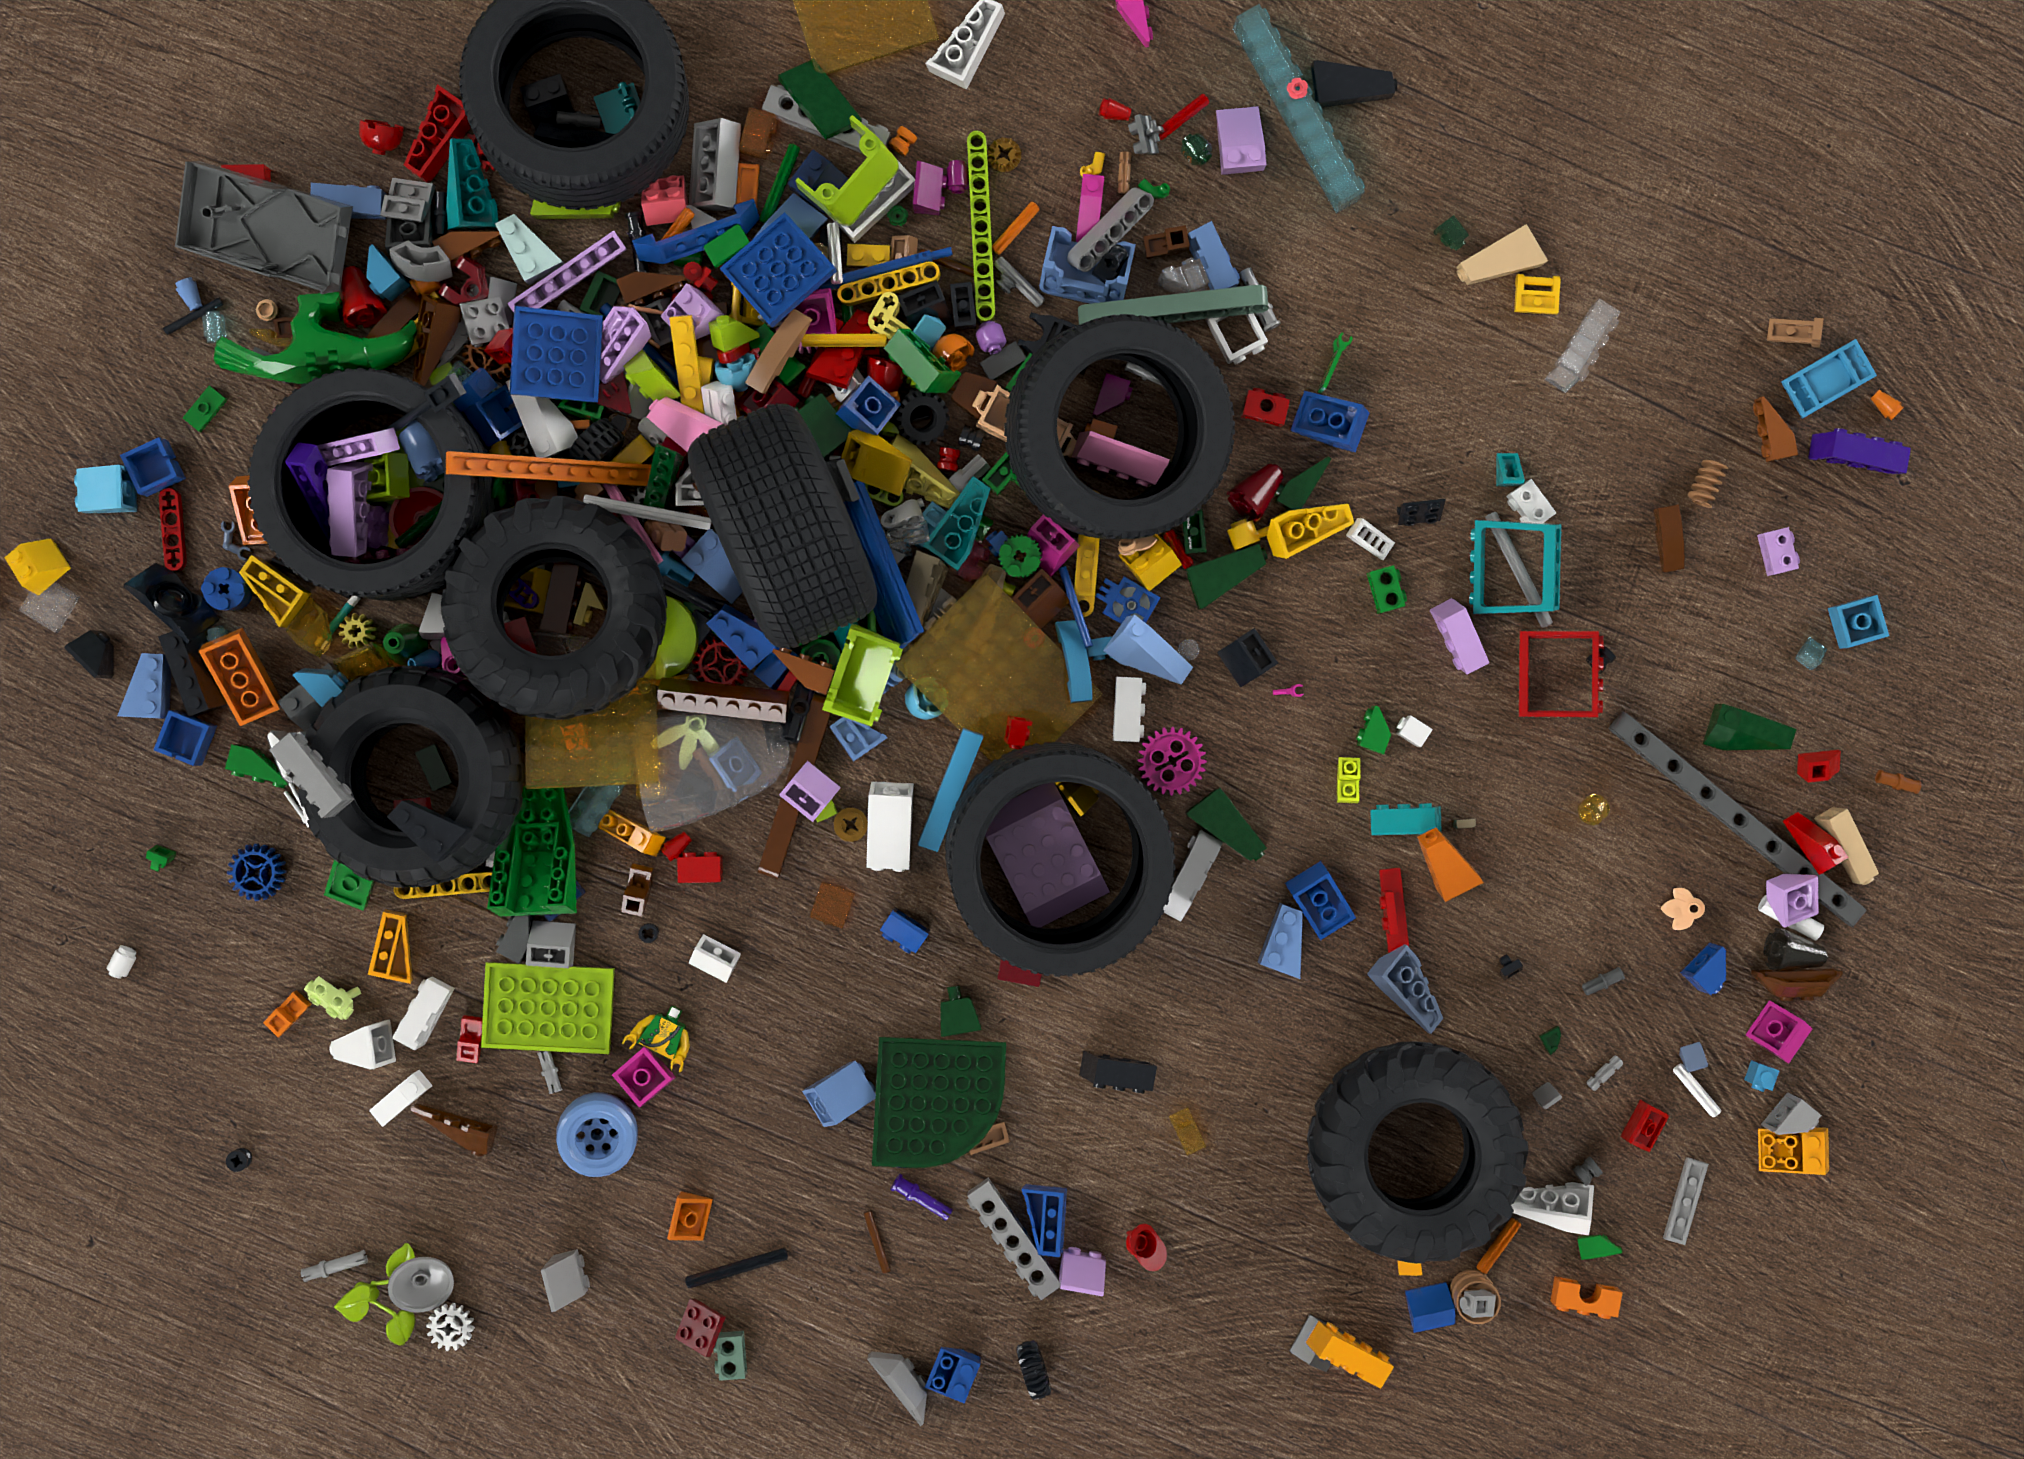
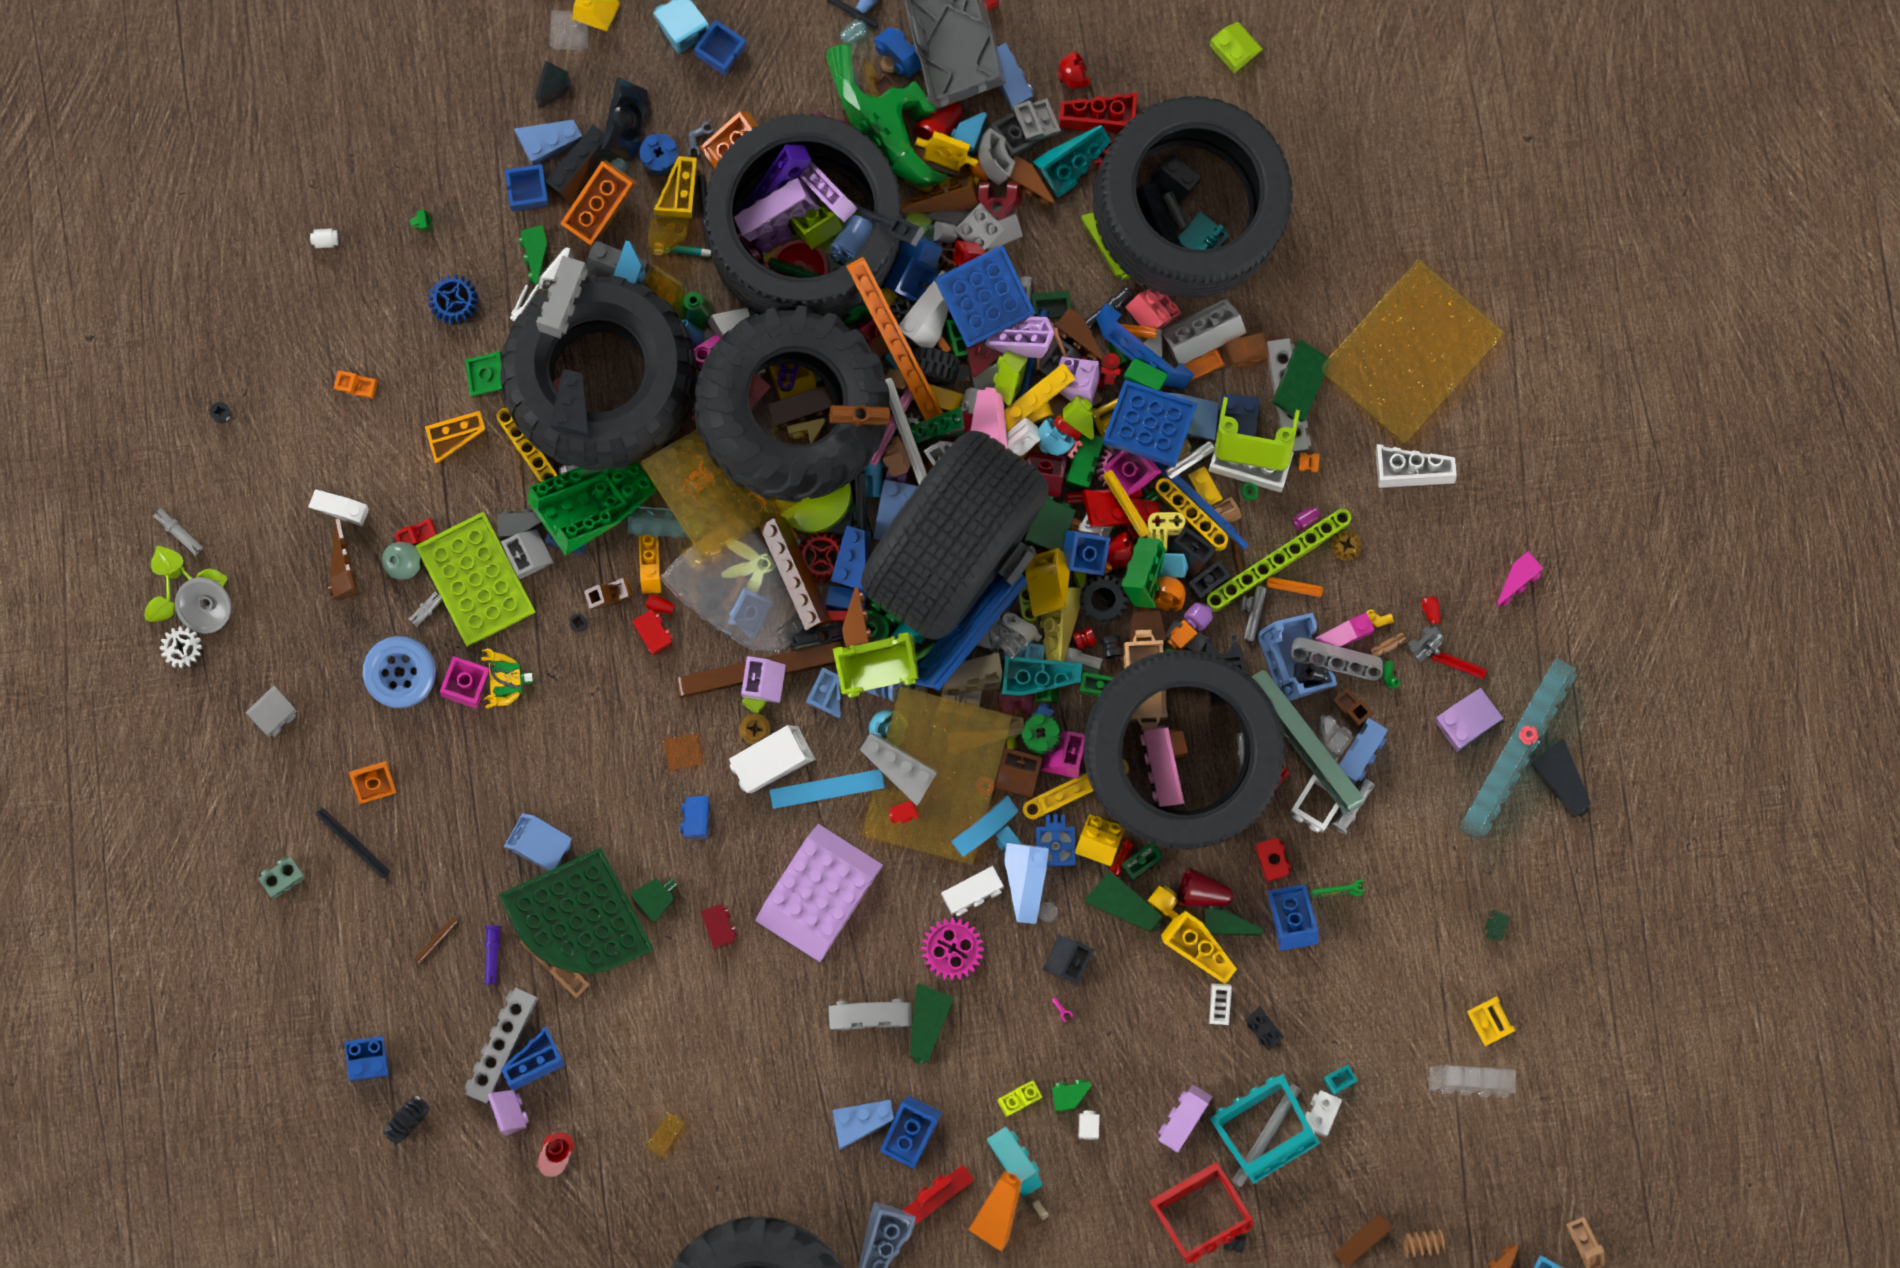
camera: 50 degrees right, 10 degrees down
(168, 530) = (678, 86): red beam -> none
(205, 408) = (787, 60): green plate -> none
(251, 295) = (894, 46): none -> blue brick
(335, 1001) = (387, 413): yellowish green brick -> none
(352, 625) = (687, 263): light yellow gear -> none
(366, 1047) = (366, 457): white slope -> none
(388, 306) = (946, 151): none -> yellow plate
(423, 1013) = (417, 486): white wedge -> none
(434, 767) = (612, 386): dark green tile -> none
(440, 214) = (1040, 149): black pin -> none
(469, 356) = (944, 232): none -> light grey brick
(488, 1069) = (401, 560): none -> sand green cylinder
(529, 253) = (1051, 232): light aqua wedge -> none
(571, 273) = (1054, 271): lavender brick -> none
(613, 537) = (847, 415): none -> dark orange piece
(700, 1327) = (290, 840): dark red plate -> none
(714, 958) = (589, 683): white brick -> none
(778, 350) = (1089, 459): medium nougat slope -> none
(780, 182) = (1220, 388): green axle -> none
(903, 1381) = (336, 1026): light grey wedge -> none
(928, 189) = (1283, 502): magenta slope -> none
(973, 710) = (900, 767): none -> light grey wedge
(1001, 364) = (1181, 636): none -> orange brick
(1075, 607) = (1028, 802): blue bar -> none
(1079, 795) = (882, 889): wedge -> none
(1109, 933) = (752, 852): black tyre -> none
(1112, 394) = (1210, 735): magenta slope -> none
(1118, 1072) = (681, 1050): black wedge -> none
(1130, 546) = (1102, 817): light nougat plate -> none
(1196, 149) = (1440, 689): clear green head -> none
(1380, 590) = (1184, 1035): green brick -> none
(1505, 257) = (1503, 977): tan slope -> none

